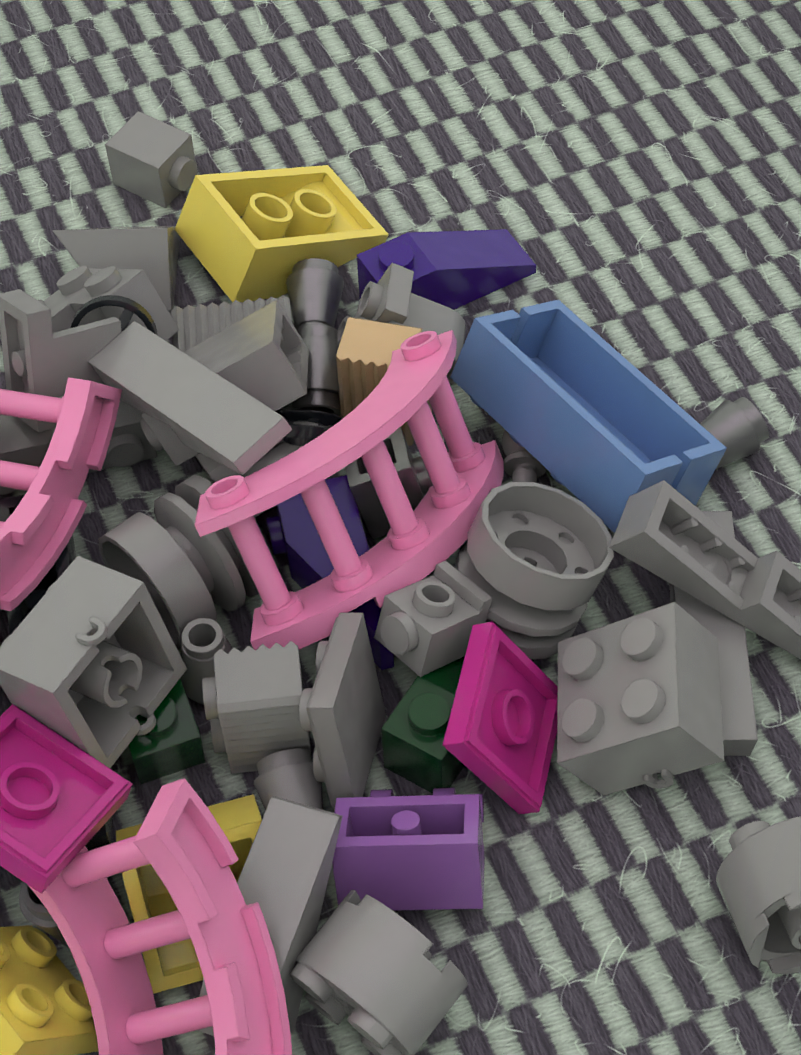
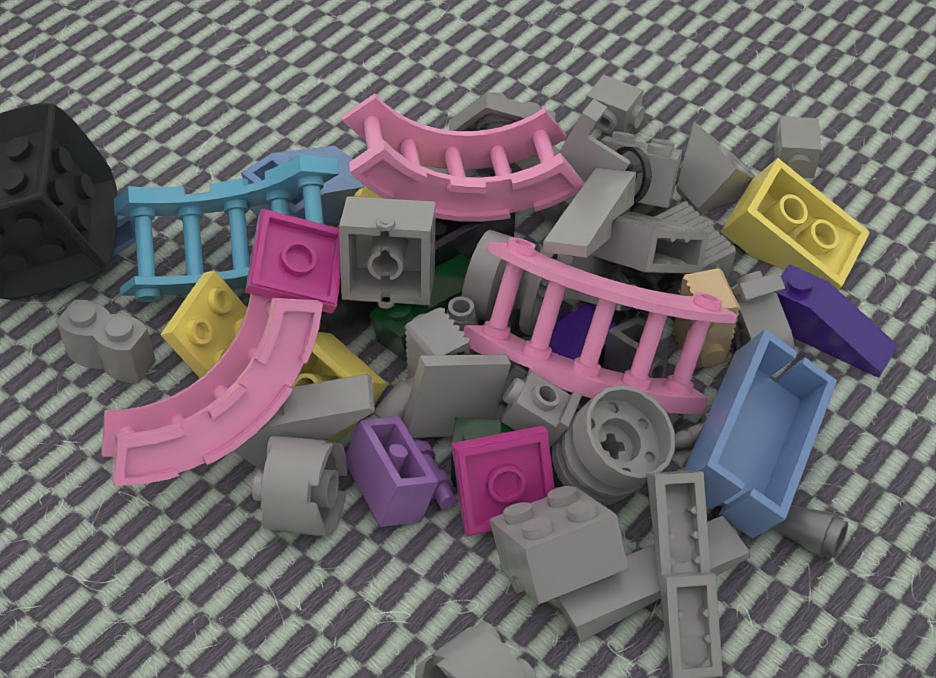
camera: 60 degrees right, 5 degrees down
(314, 292) = (760, 258): flat silver cone -> none

